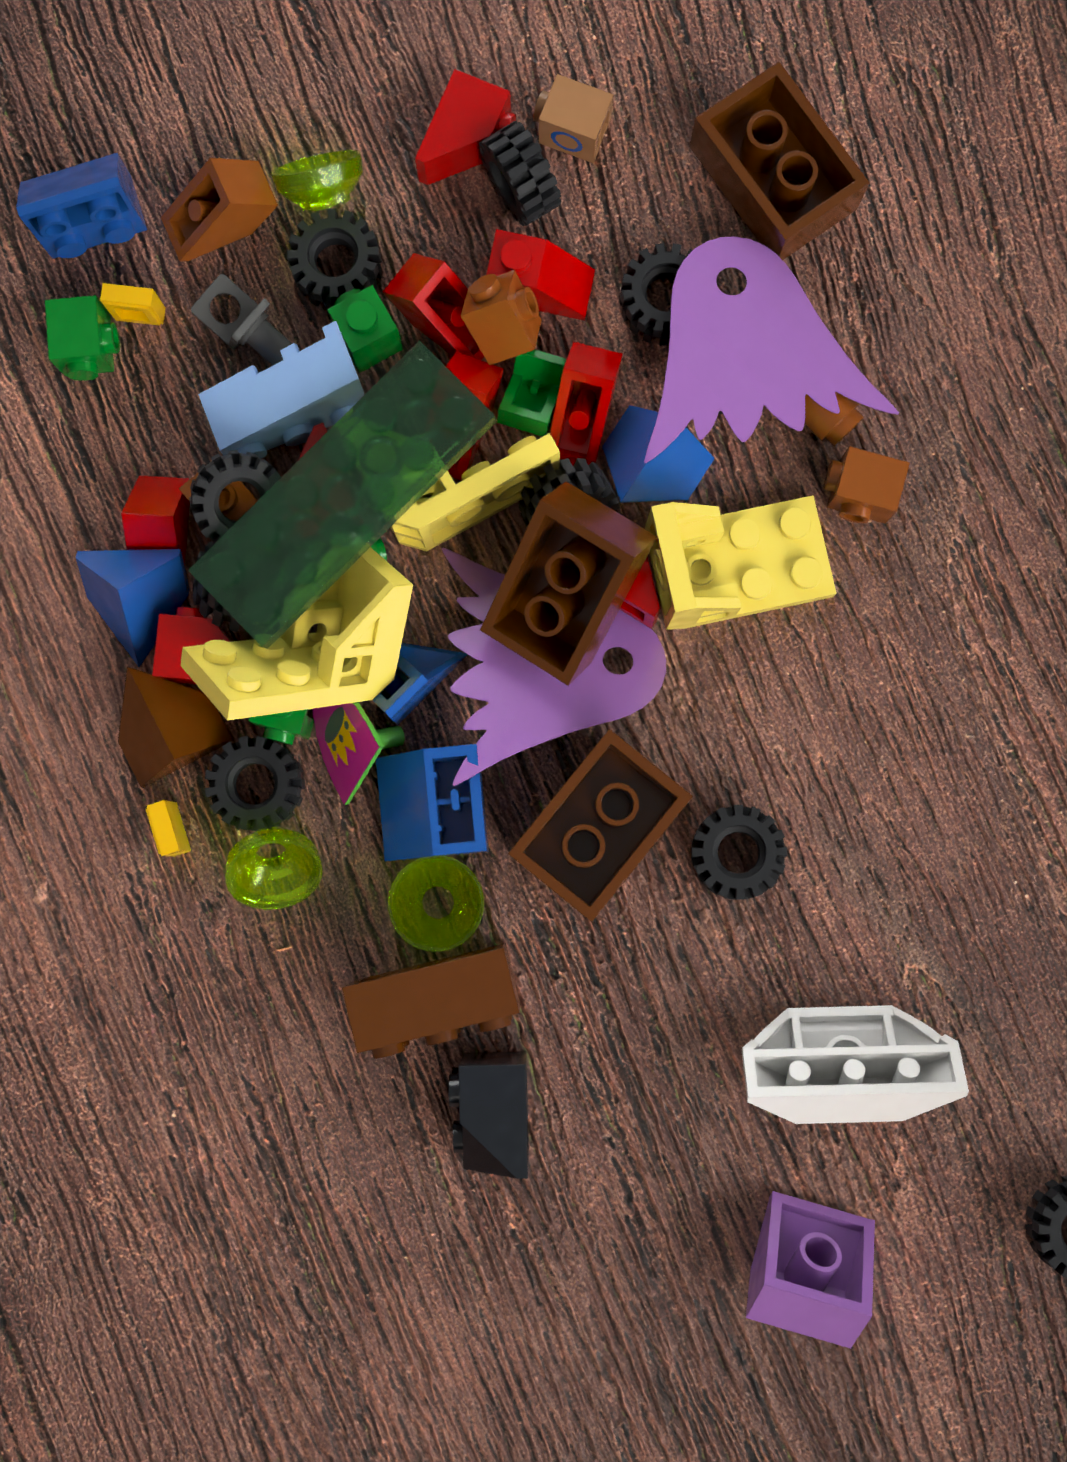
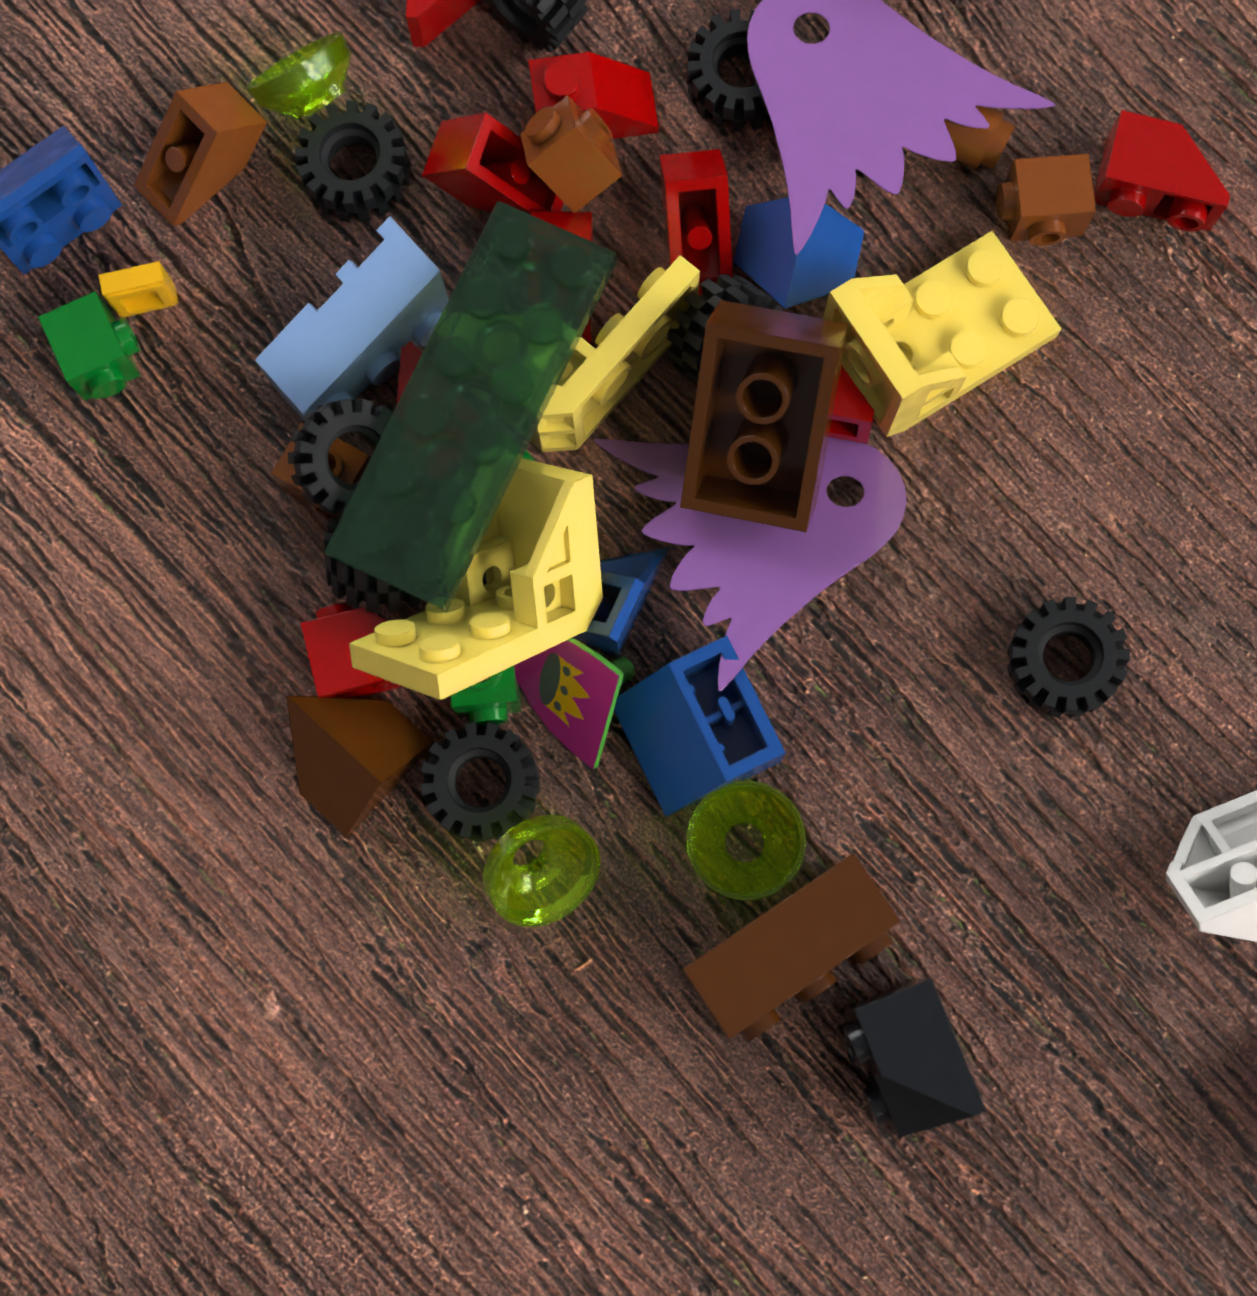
camera: 20 degrees left, 5 degrees down
(133, 590) = (256, 614): blue slope -> none
(156, 515) = (257, 531): red slope -> none
(168, 828) = (397, 870): yellow tile -> none
(248, 328) = (281, 268): dark grey bracket -> none
(365, 327) = (422, 213): green brick -> none
(532, 392) = (635, 224): green bracket -> none
(600, 825) = (902, 681): reddish brown brick -> none
(962, 496) = (1158, 173): none -> red slope

